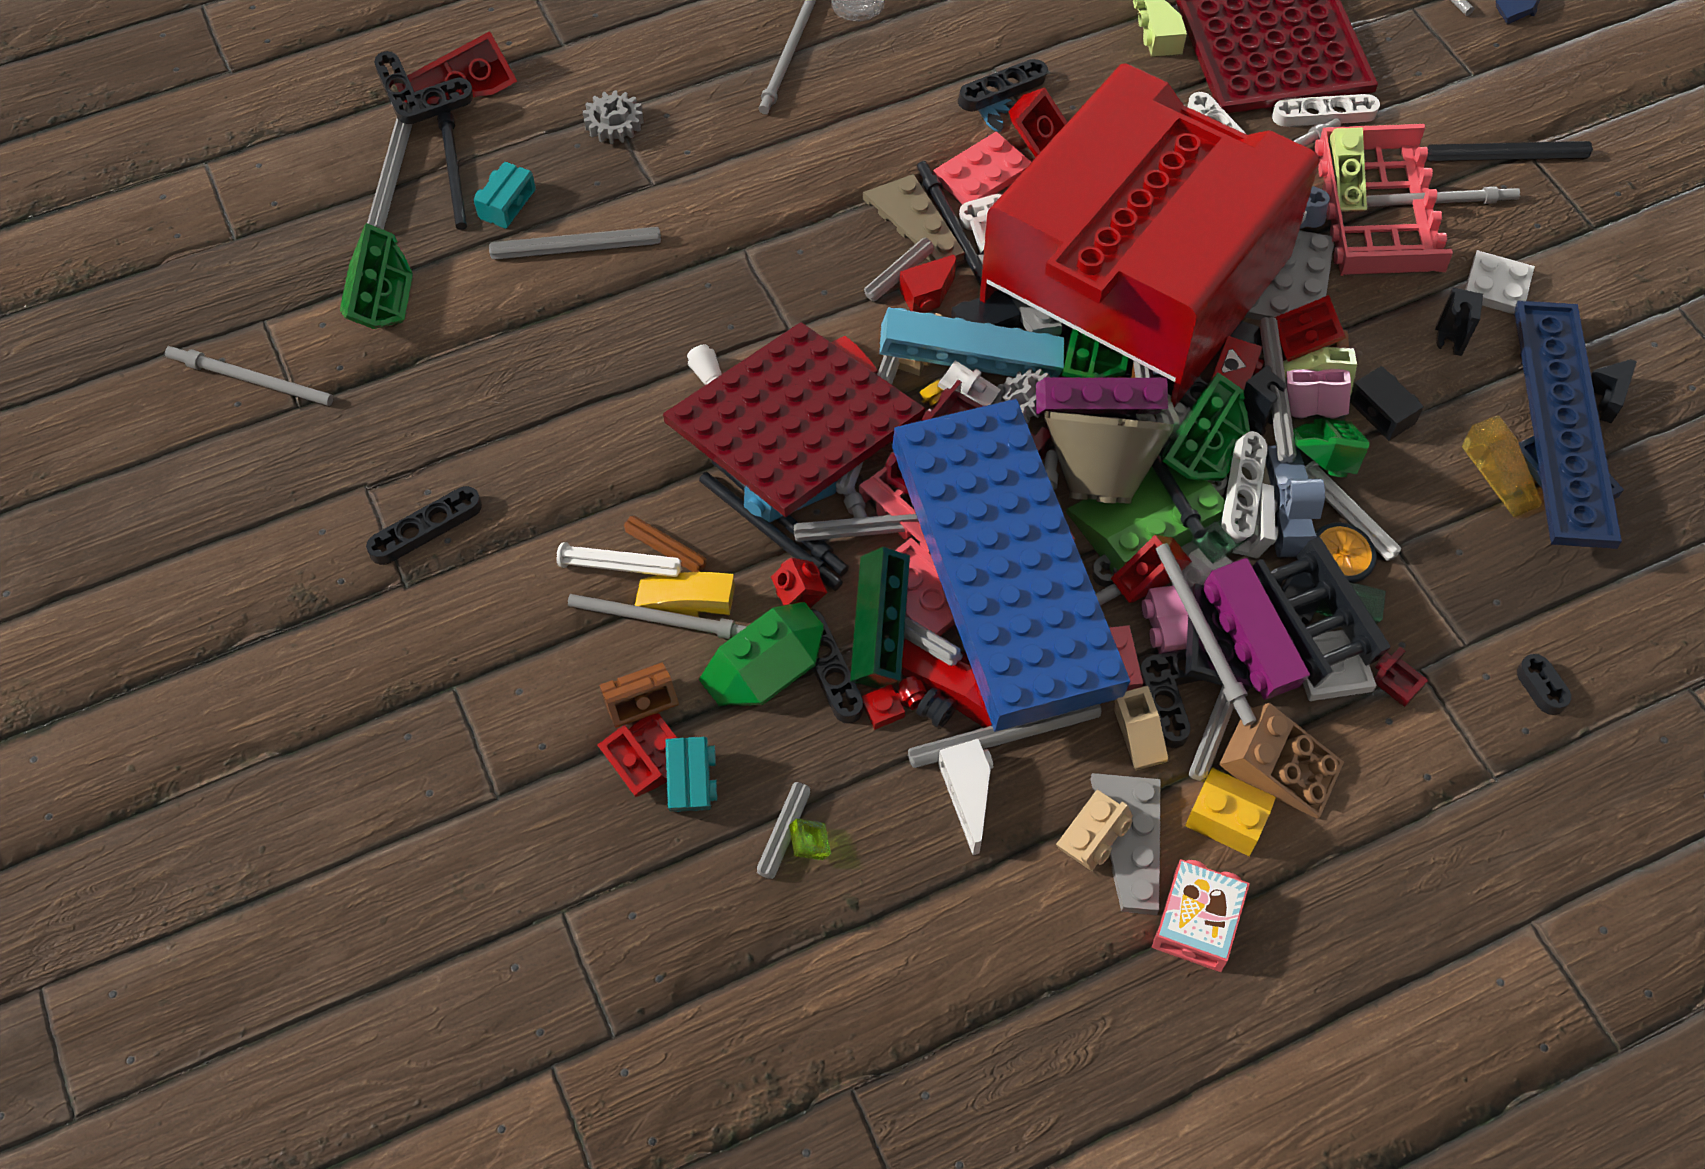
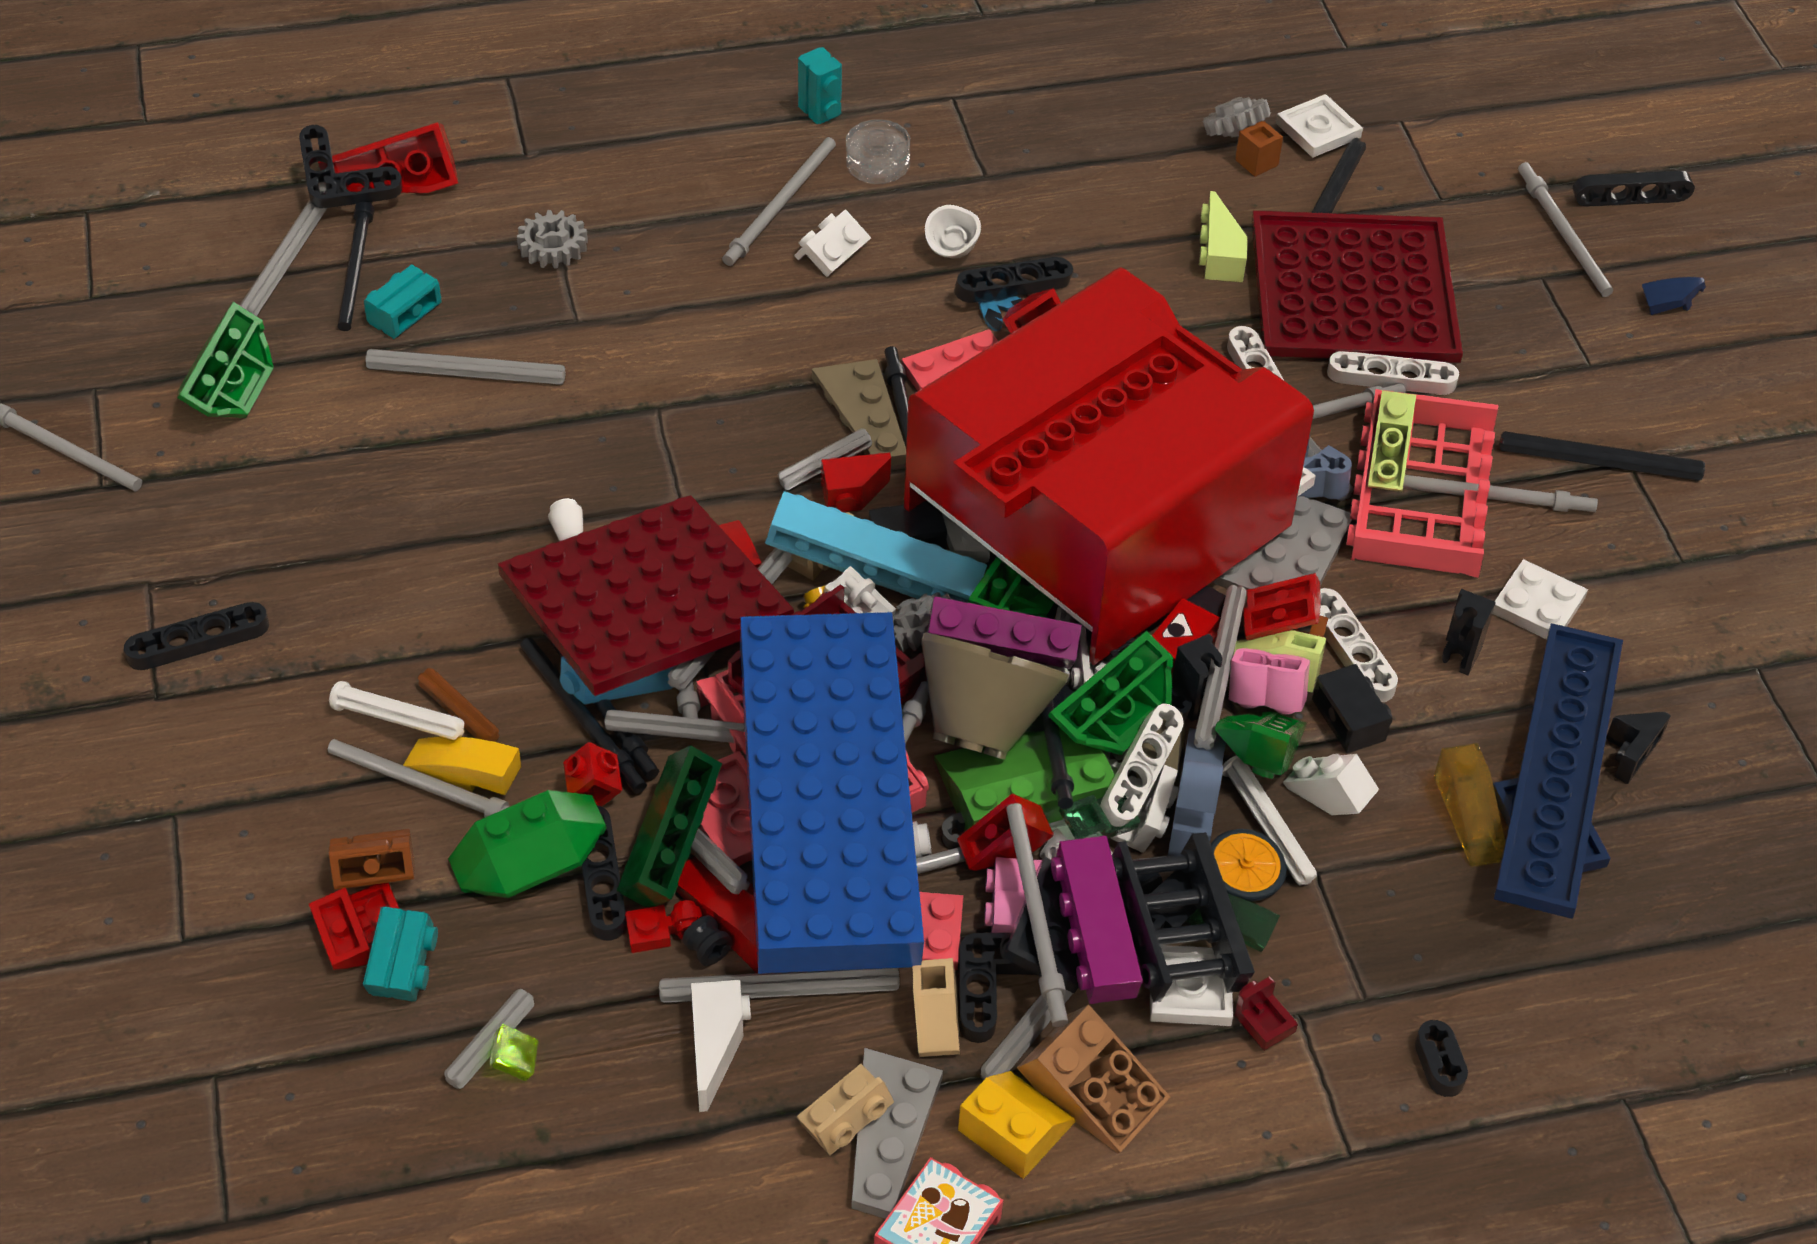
camera: 10 degrees right, 10 degrees down
(846, 79) = (834, 243): none -> white bracket
(942, 51) = (952, 231): none -> white helmet
(1372, 345) = (1356, 643): none -> white beam
(1393, 470) = (1333, 783): none -> white slope

